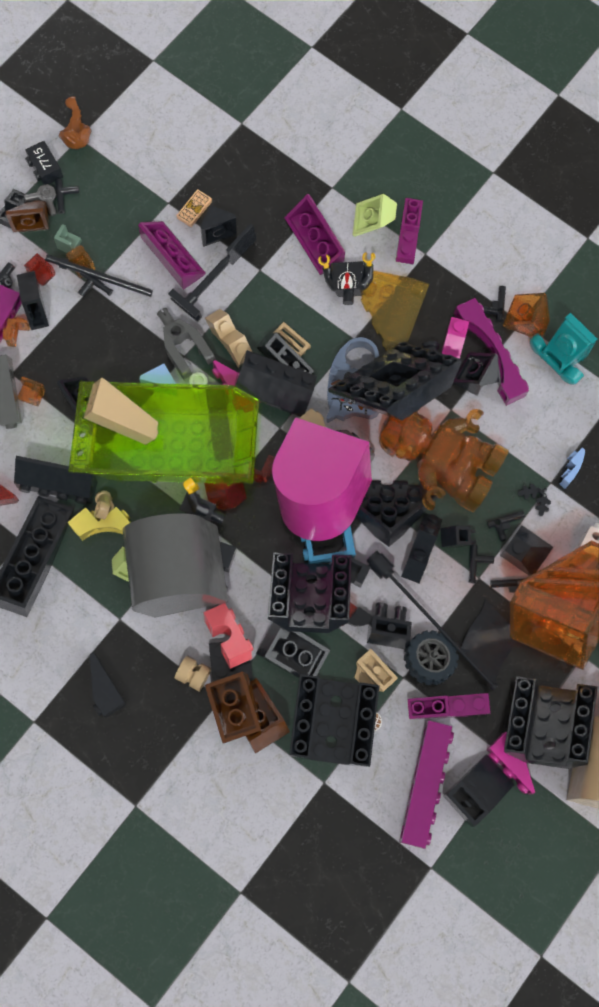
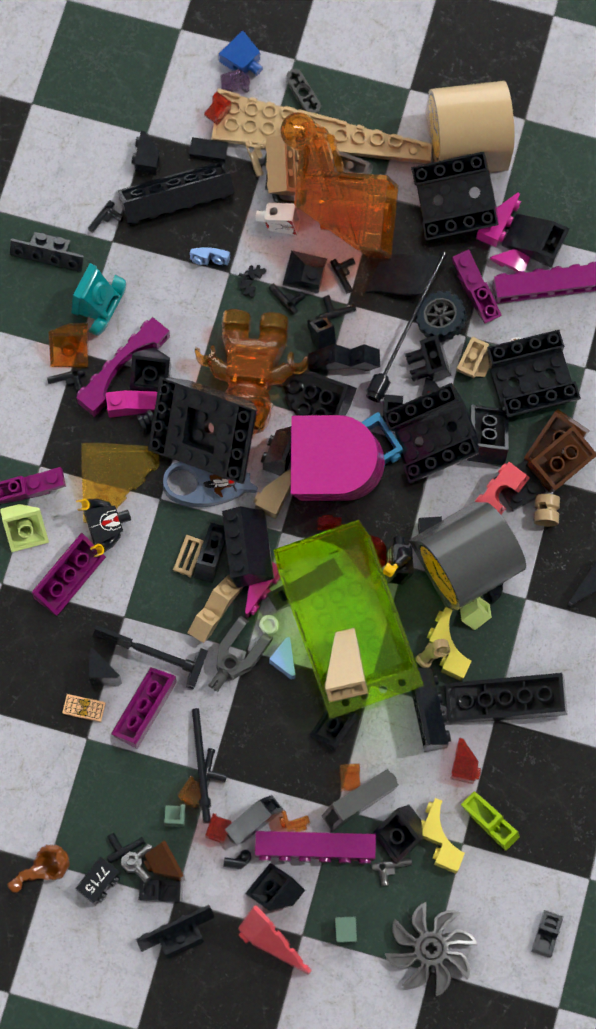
camera: 110 degrees left, 0 degrees up
(465, 757) = (512, 259): none -> dark pink slope

